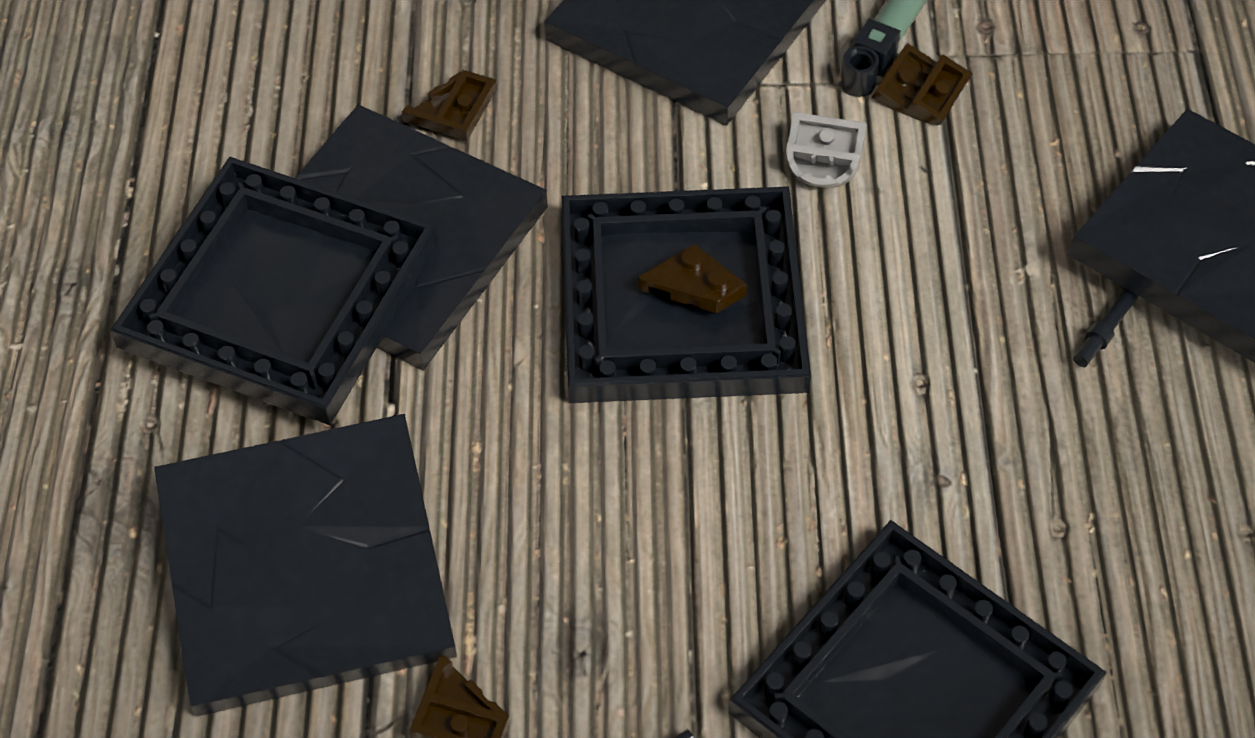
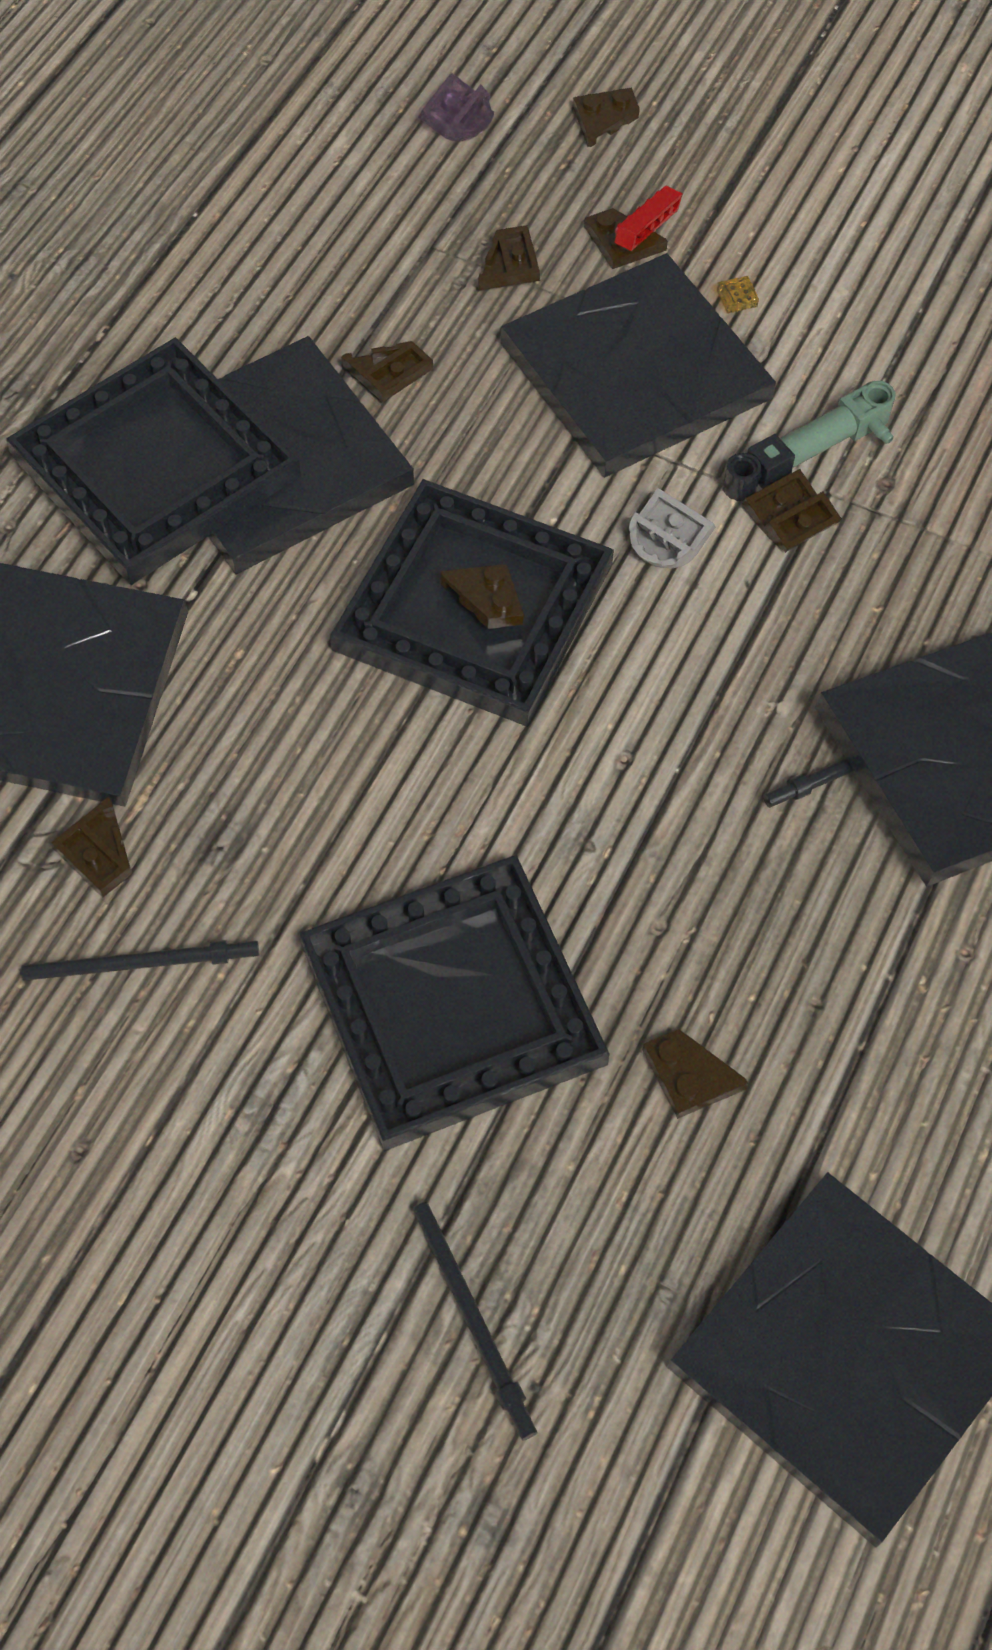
camera: 25 degrees right, 5 degrees up
(1183, 654) = (690, 1073): none -> dark brown wing

